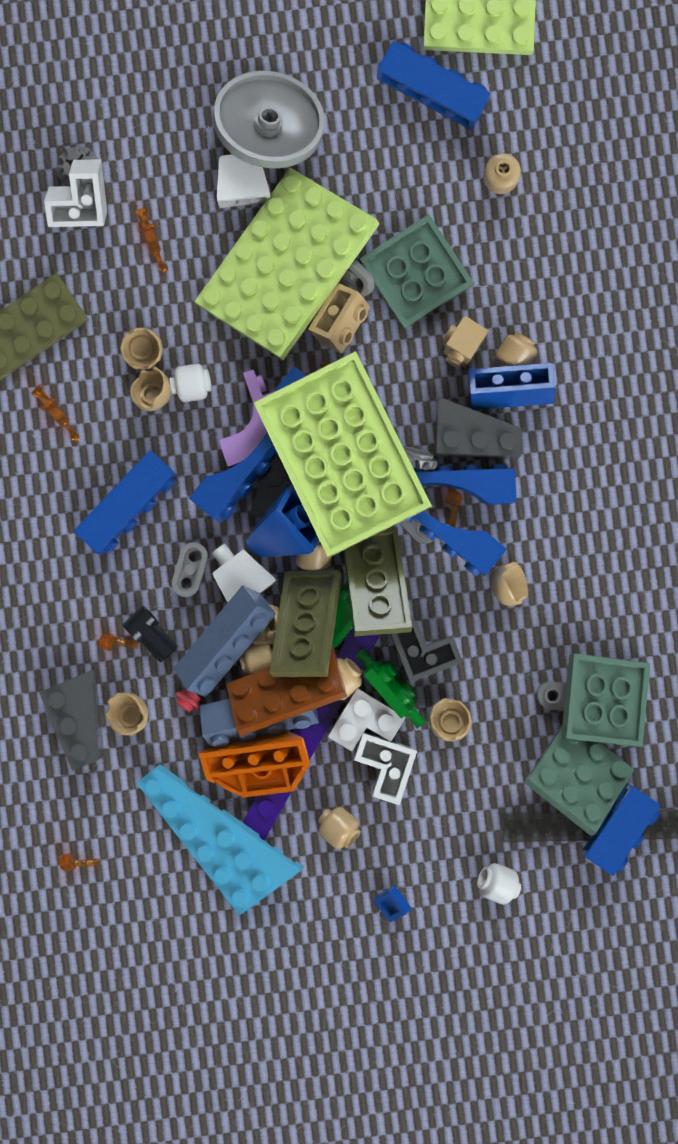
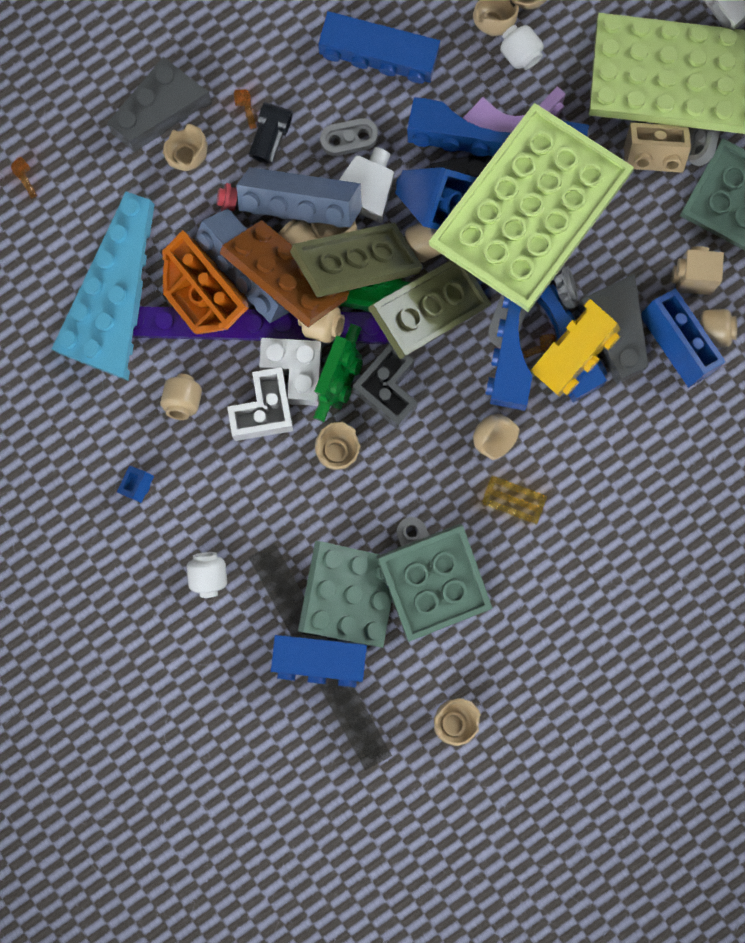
camera: 65 degrees right, 5 degrees down
(481, 481) = (577, 349): none -> yellow wedge
(551, 611) = (511, 511): none -> clear yellow tile

